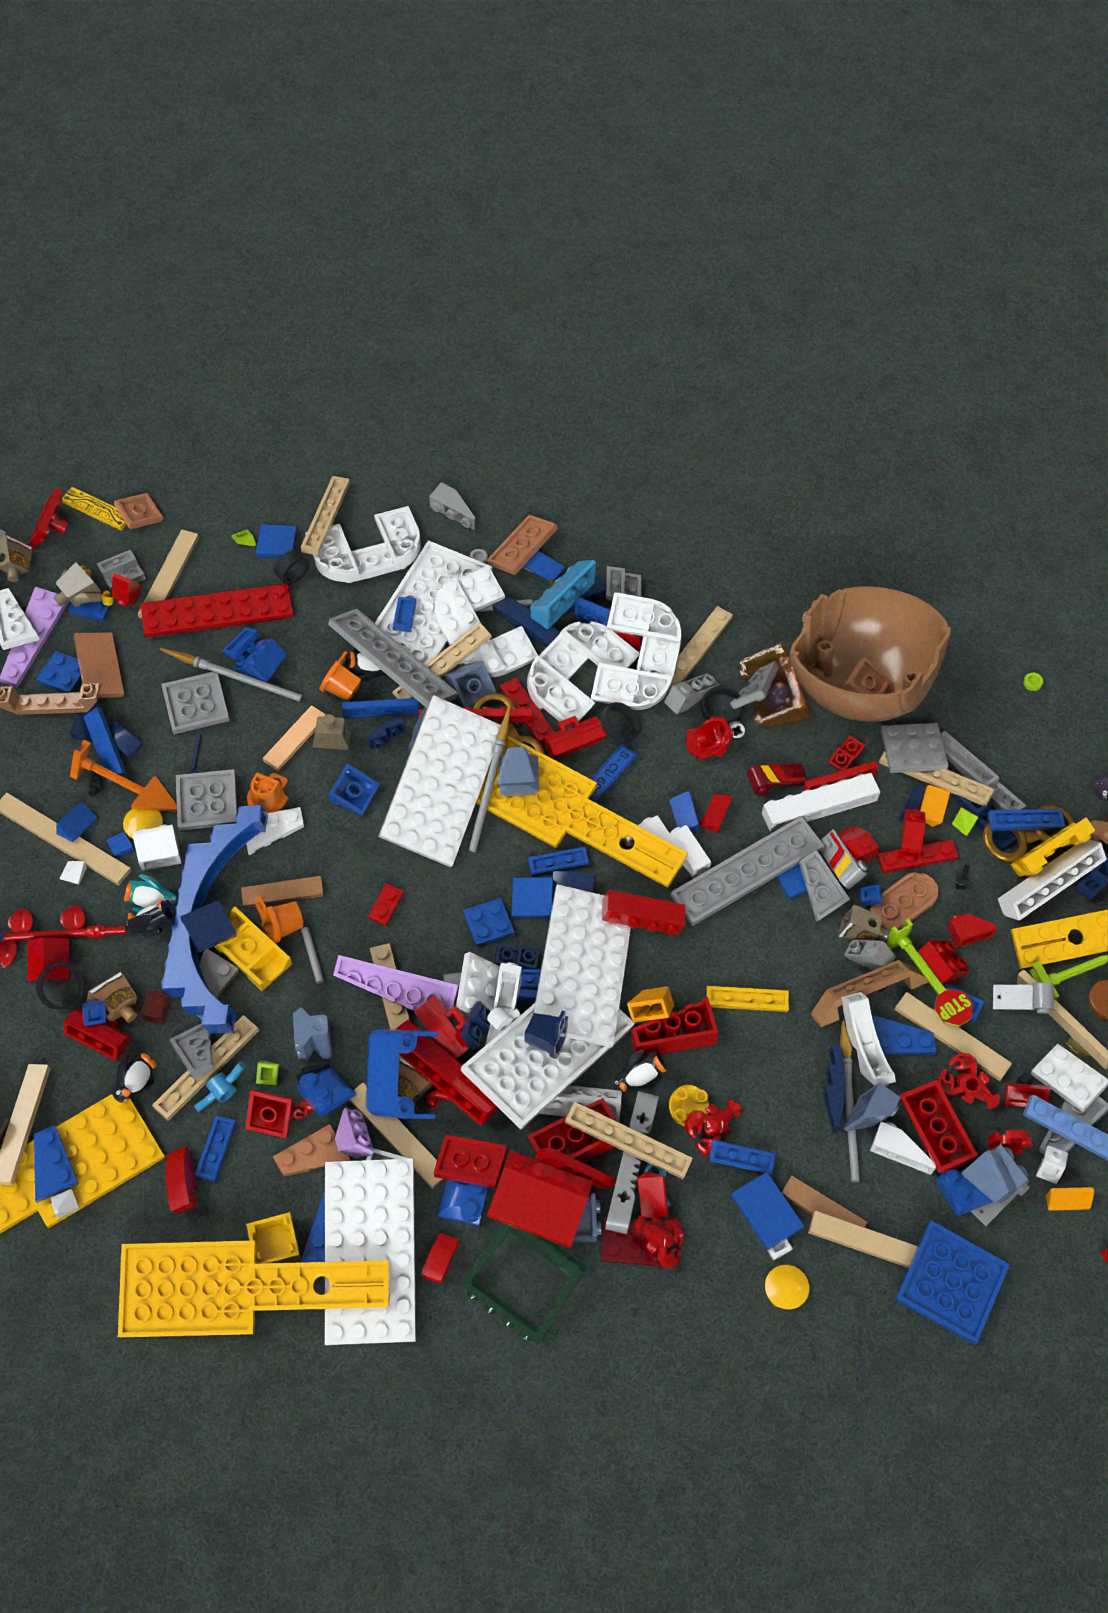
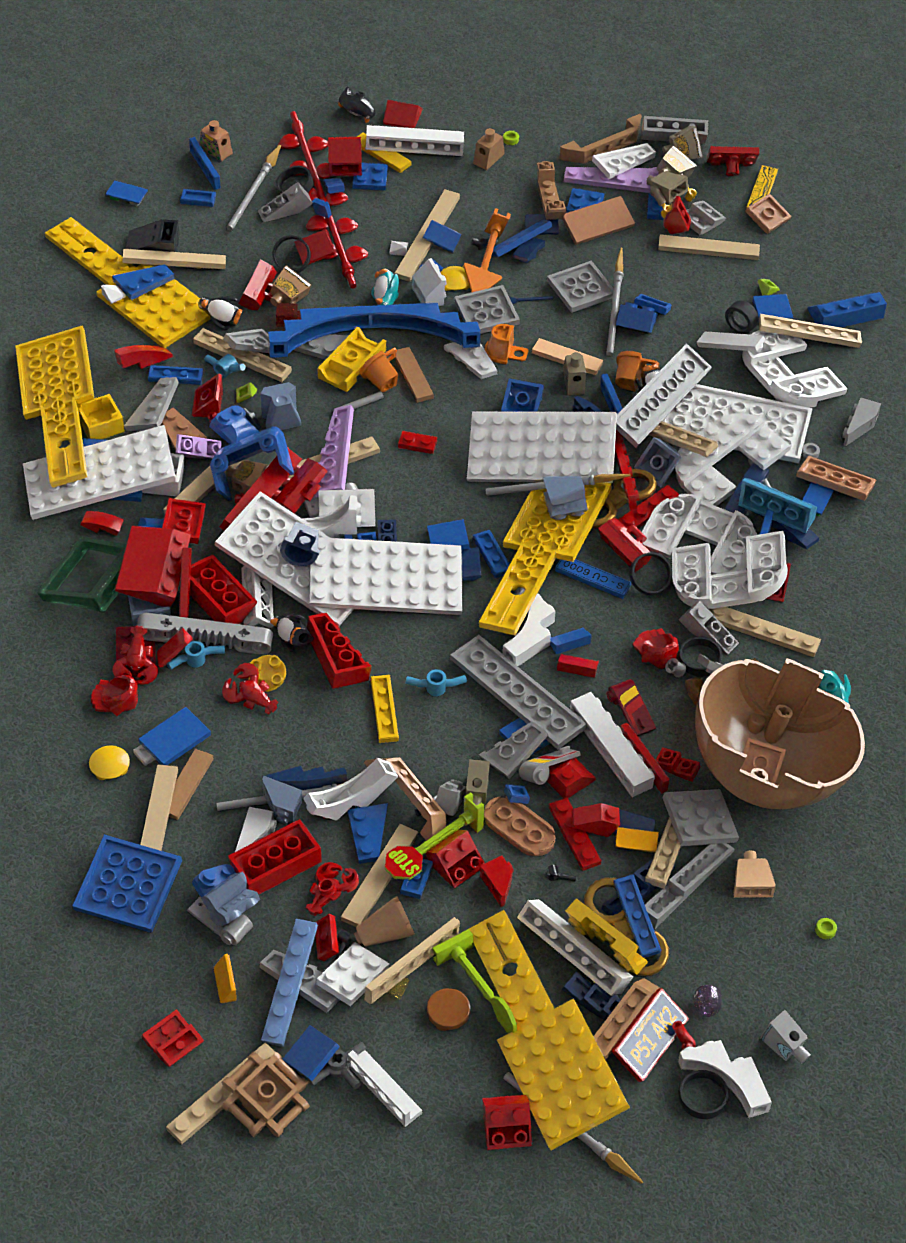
camera: 80 degrees right, 10 degrees down
(40, 574) = (676, 163): none -> dark tan torso
(93, 1012) = (269, 272): blue tile -> none
(152, 918) = (363, 294): black animal -> none
(208, 926) = (360, 324): dark blue tile -> none
(216, 610) = (681, 283): red plate -> none
(269, 1180) = (154, 406): none -> light grey wing
(297, 479) = (849, 310): none -> blue slope
(325, 583) = (731, 341): none -> white tile
(404, 614) = (719, 402): blue tile -> none
(475, 1024) = (307, 505): dark blue slope -> none
(488, 922) = (417, 512): blue plate -> none
(501, 1019) = (315, 517): white piece -> none
(621, 582) = (813, 560): light grey slope -> none
(628, 1140) = (215, 616): tan plate -> none
(643, 912) = (447, 611): red brick -> none
(651, 1004) = (357, 628): light orange torso -> none
(701, 1269) = (115, 695): none -> red hair
(725, 950) = (436, 682): none -> dark azure piece
(742, 1157) = (223, 715): blue tile -> none
(784, 609) = (832, 684): none -> teal animal
(965, 821) = (624, 869): lime slope -> none
(980, 722) = (753, 877): none -> light nougat torso
(1014, 1140) = (270, 917): red plate -> none
(1020, 1037) = (385, 925): none -> medium nougat cone
(1024, 997) = (427, 924): door -> none
(1052, 1164) = (257, 957): white bracket -> none

